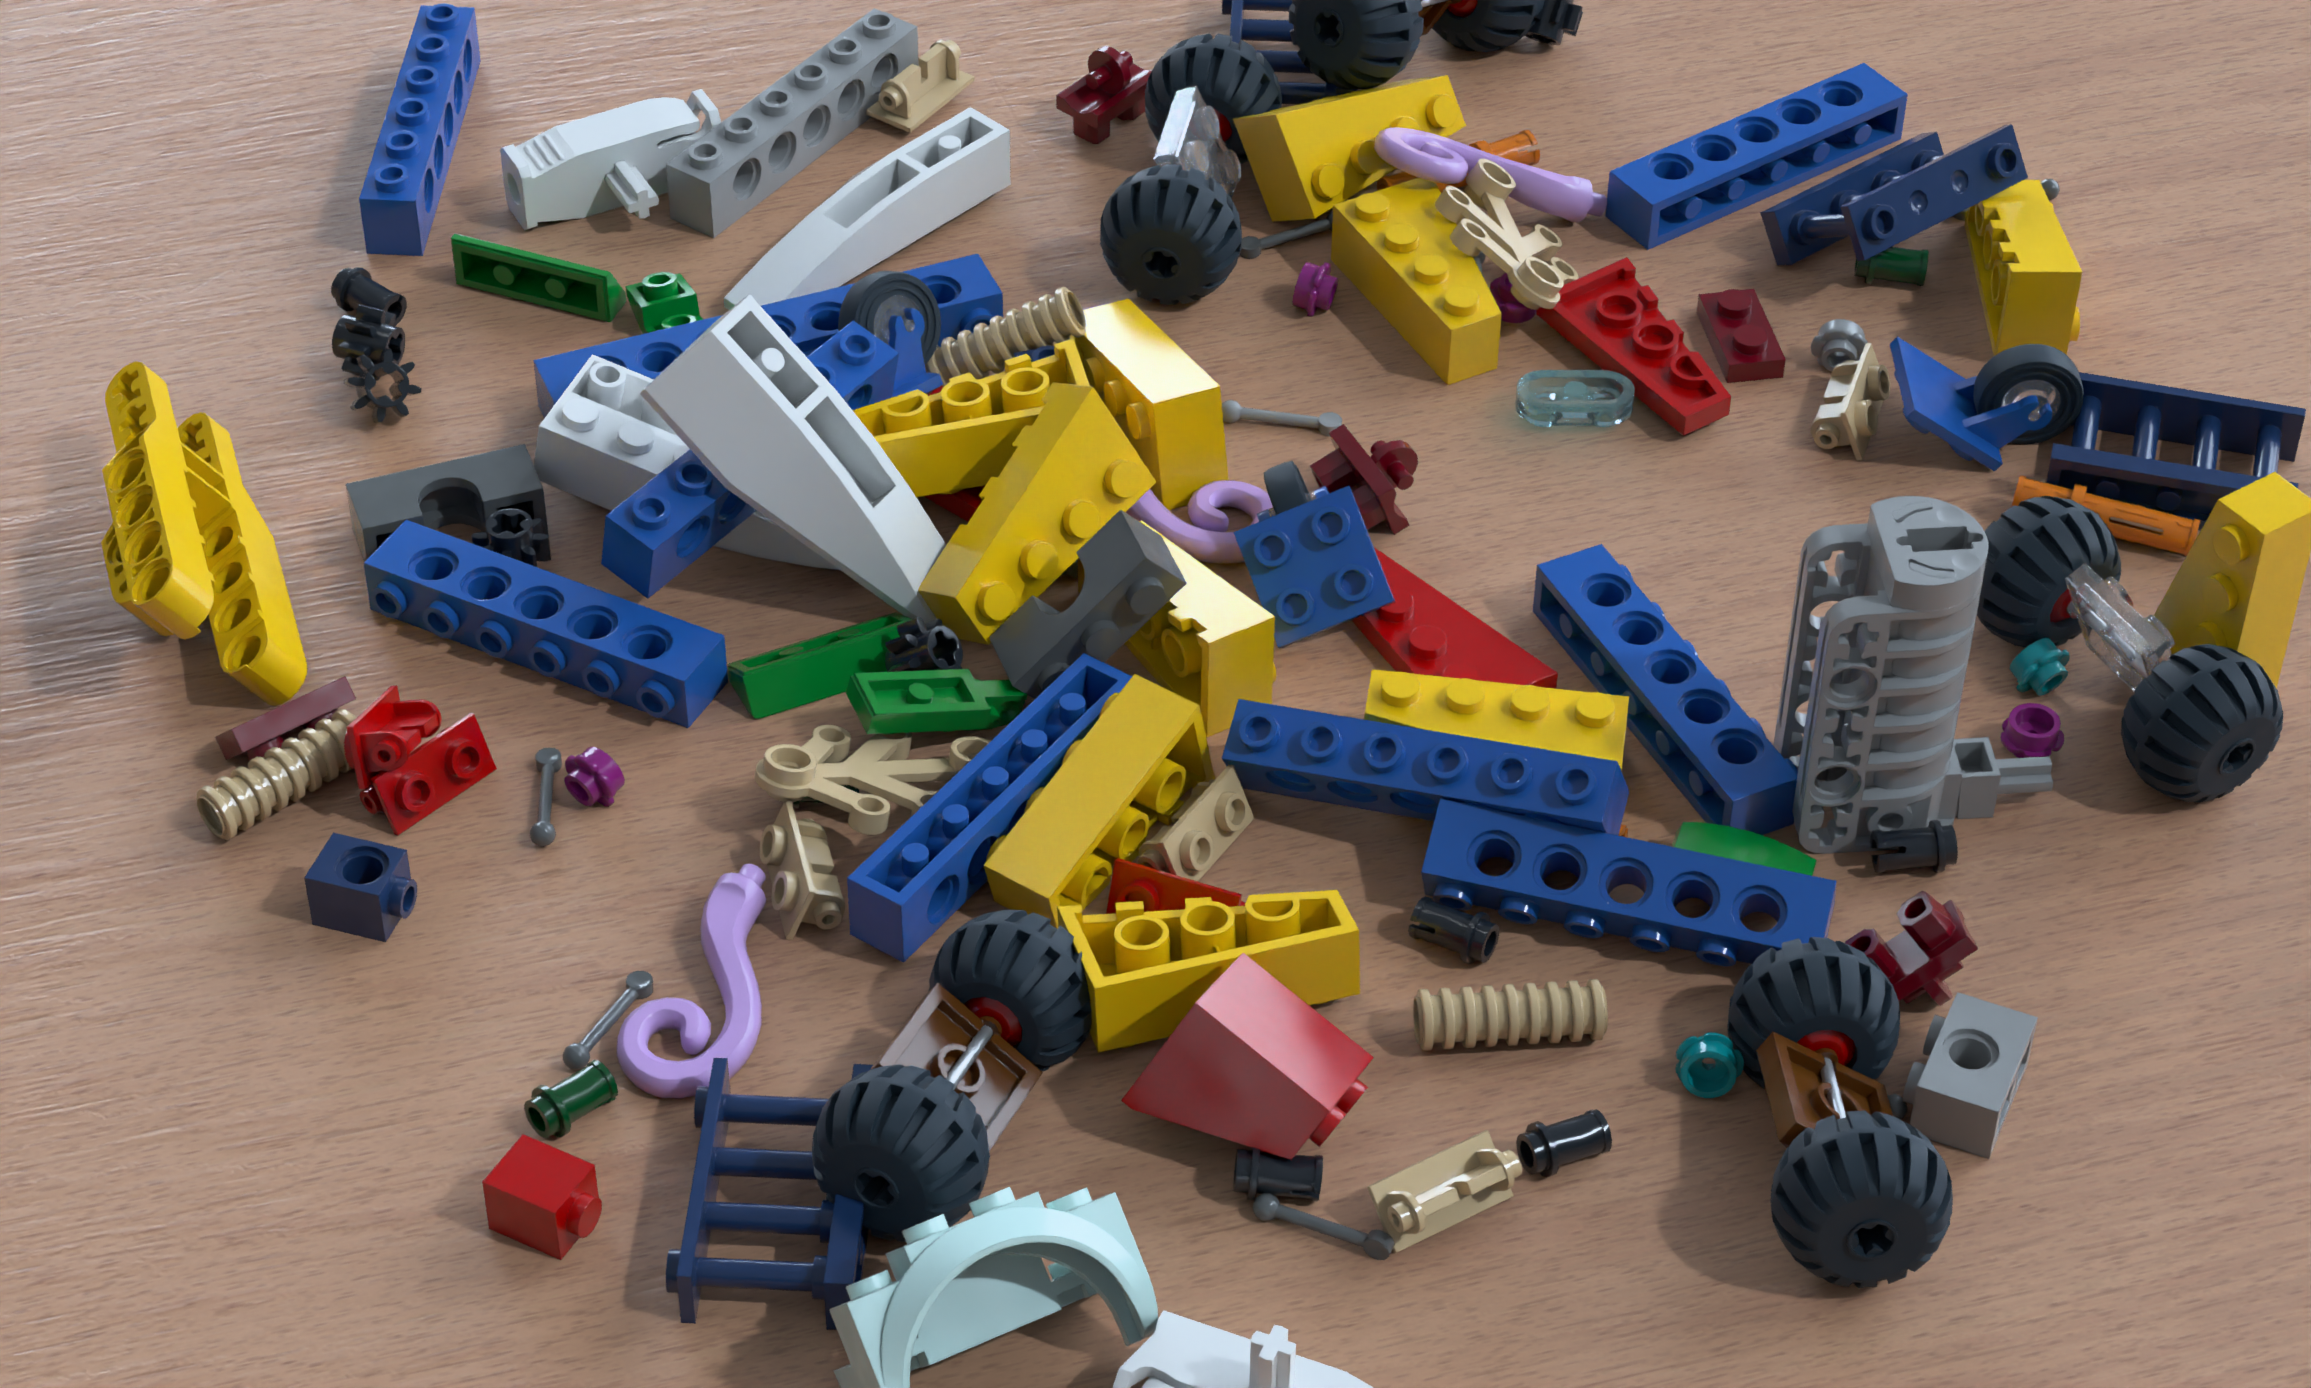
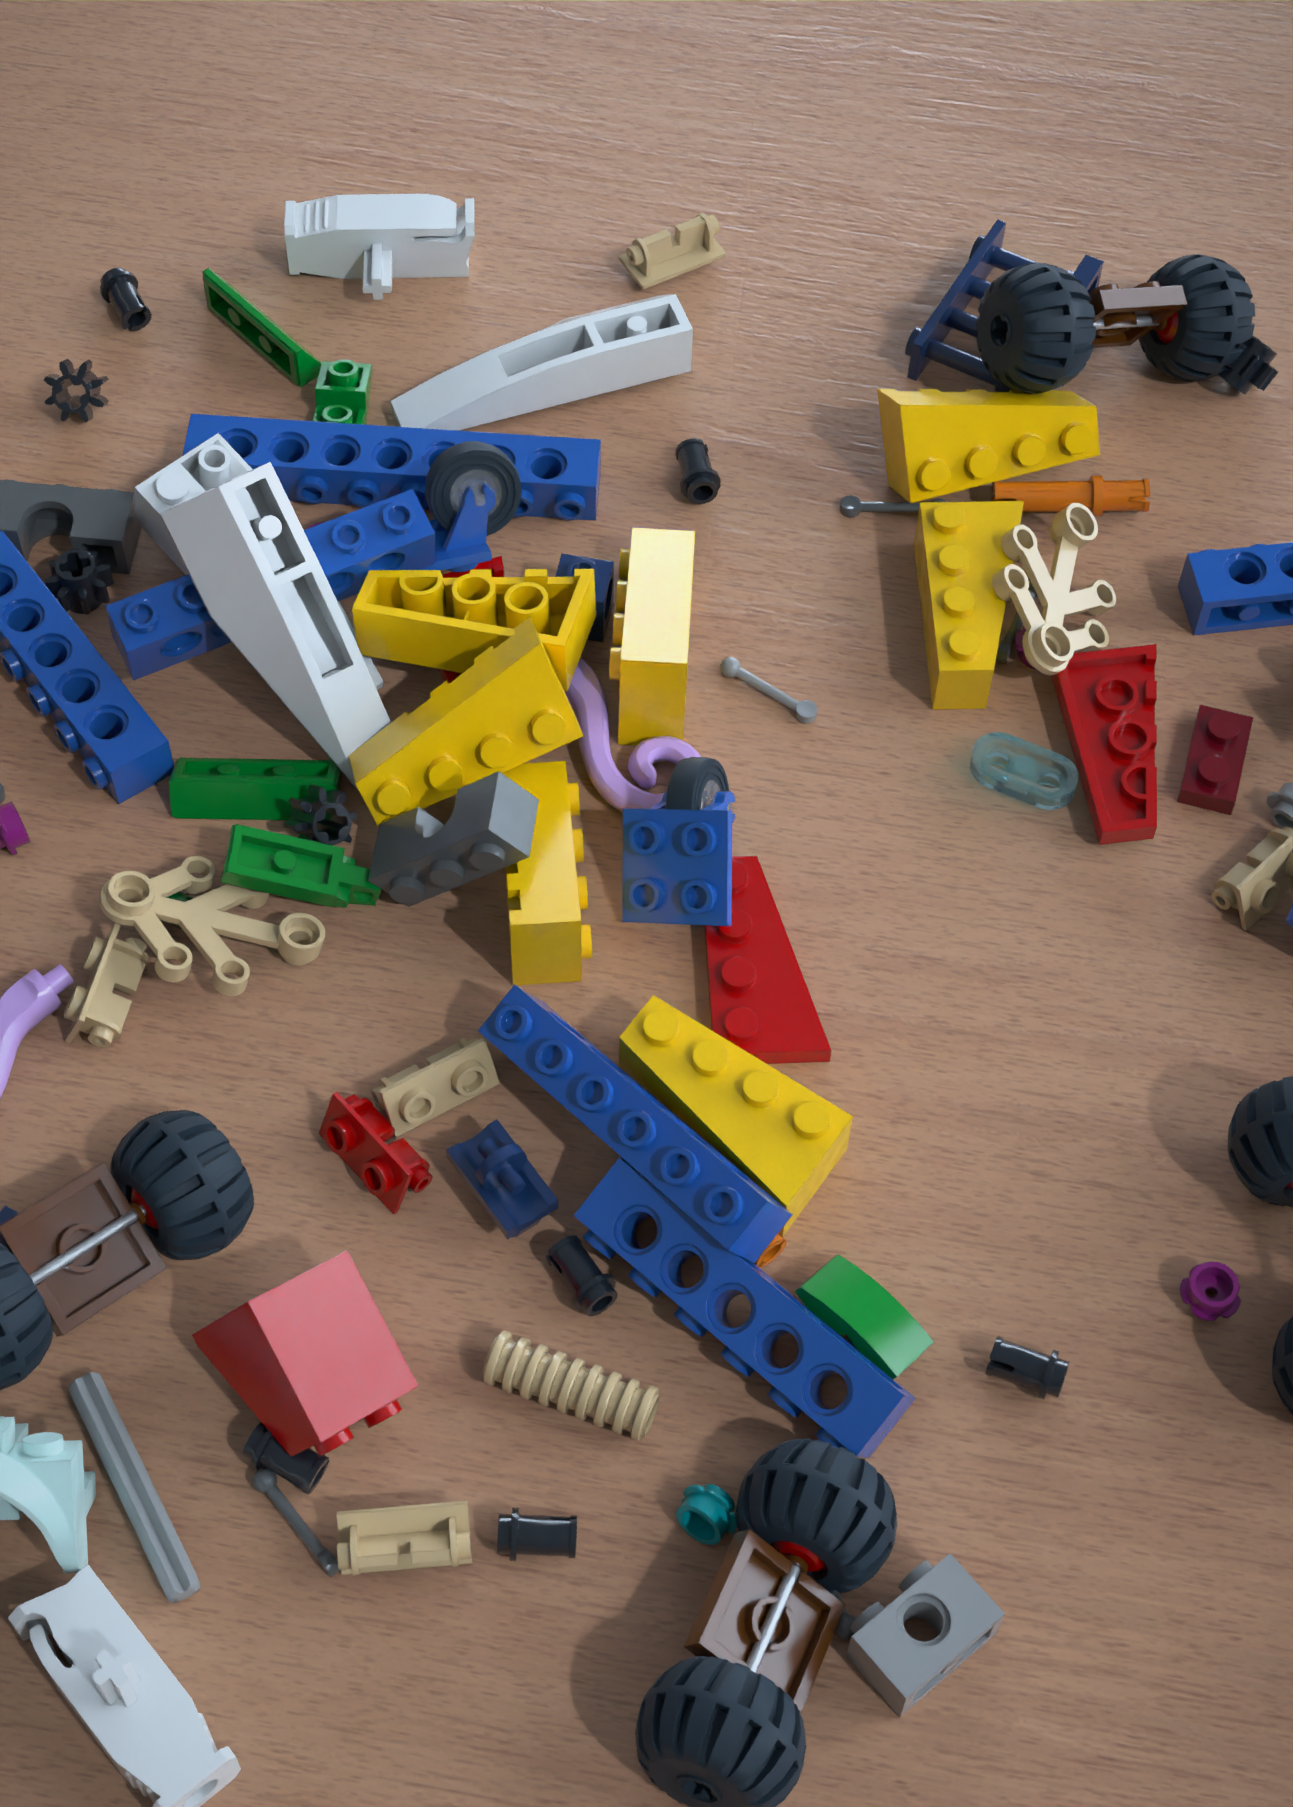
camera: 25 degrees right, 15 degrees up
(367, 335) = (93, 339): black gear -> none
(420, 131) = (255, 155): blue brick -> none
(788, 124) = (541, 250): light grey brick -> none
(941, 850) = (277, 994): blue brick -> none
(1026, 330) = (579, 534): tan piece -> none
(1081, 261) = (699, 480): none -> black pin
(1101, 801) = (357, 1031): yellow wedge -> none
(1108, 91) = (818, 310): dark red hips -> none
(1156, 964) = (319, 1209): yellow wedge -> none
(1175, 223) = (776, 474): black plate -> none
(1185, 1278) = (134, 1487): none -> light grey axle
(1315, 288) = (872, 571): magenta plate -> none
(1324, 863) = (503, 1180): none -> dark blue hips
(1374, 476) = (796, 784): dark red hips -> none
(1449, 161) = (1040, 499): lavender plant -> none
(1674, 700) = (902, 1250): blue brick -> none
(1889, 679) = (1055, 1231): light grey piece -> none
(1924, 952) = (943, 1492): dark red hips -> none
(2040, 667) = (1261, 1225): teal plate -> none

